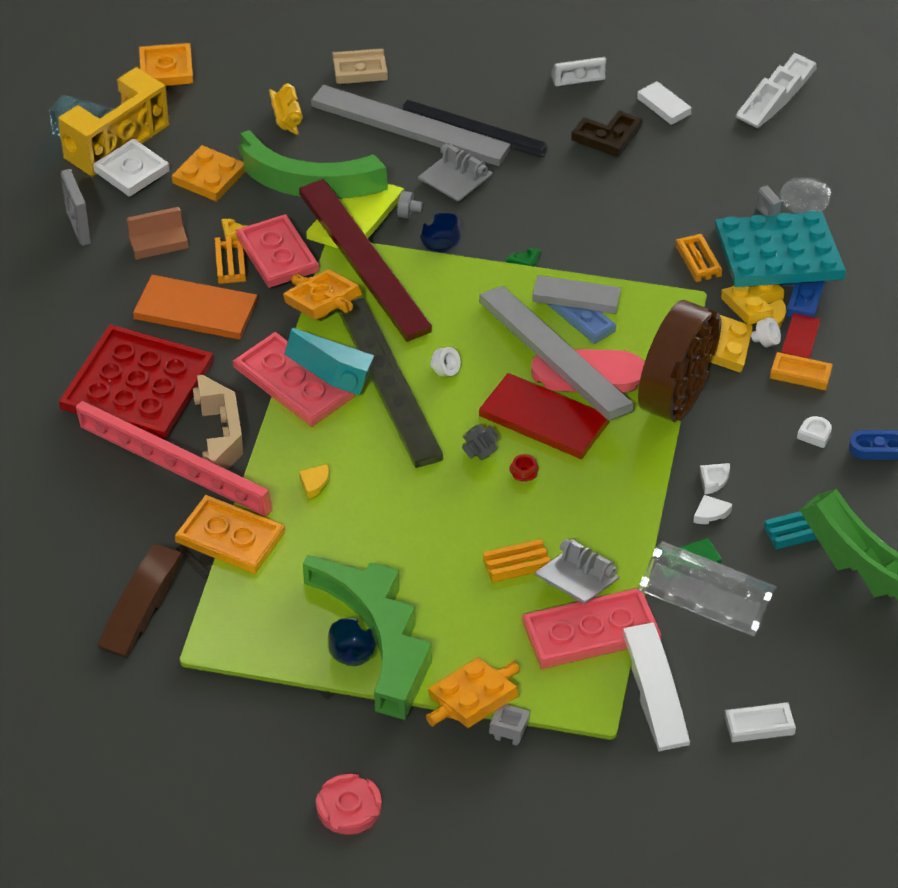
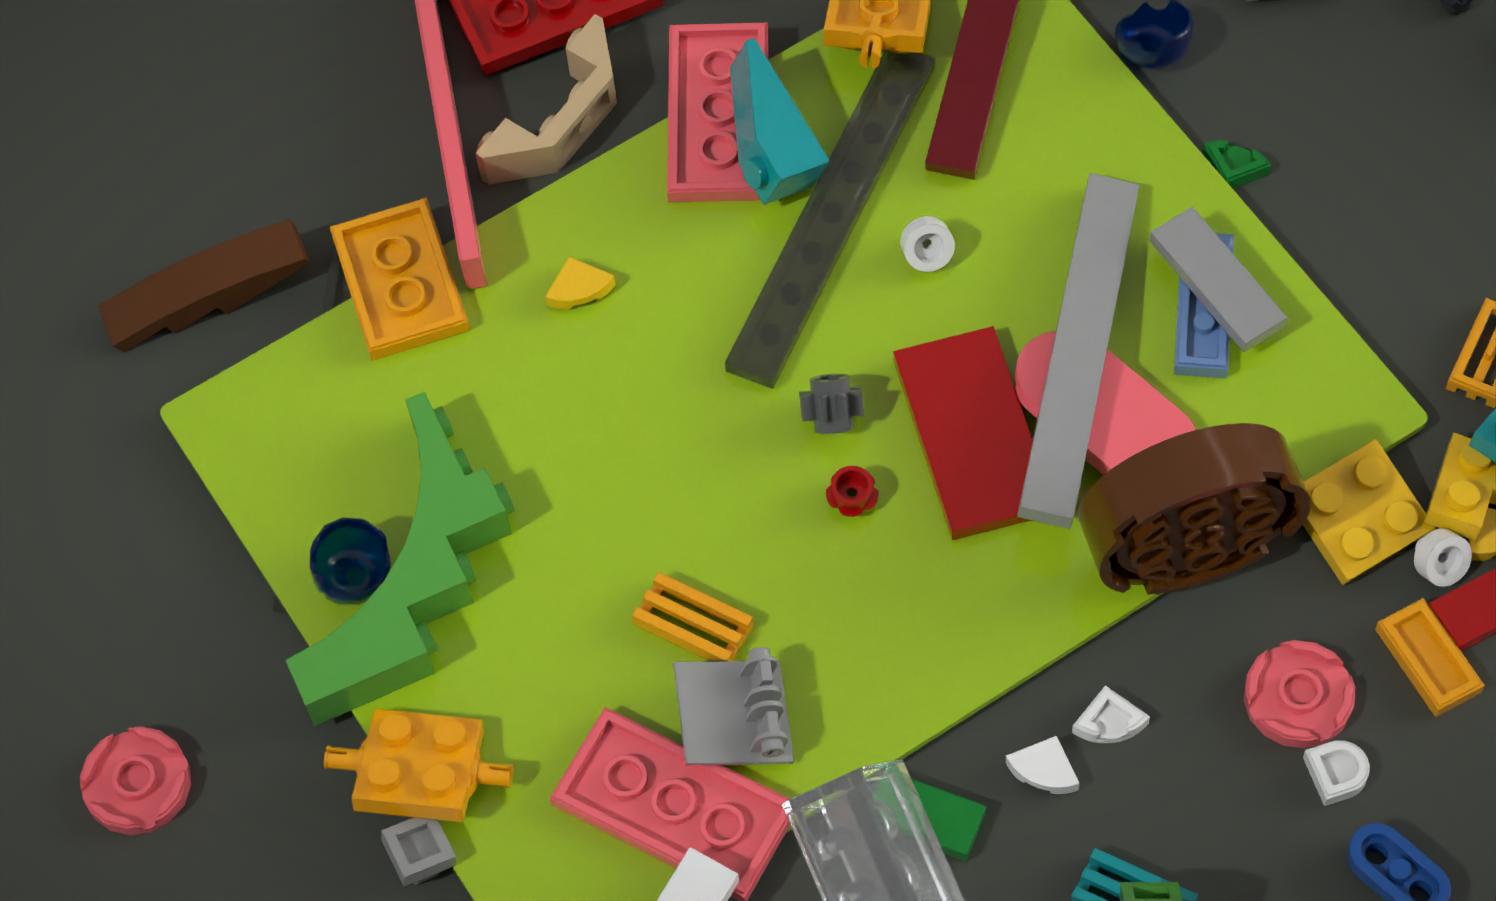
camera: 50 degrees right, 15 degrees up
(771, 417) = (1299, 694): none -> coral tile

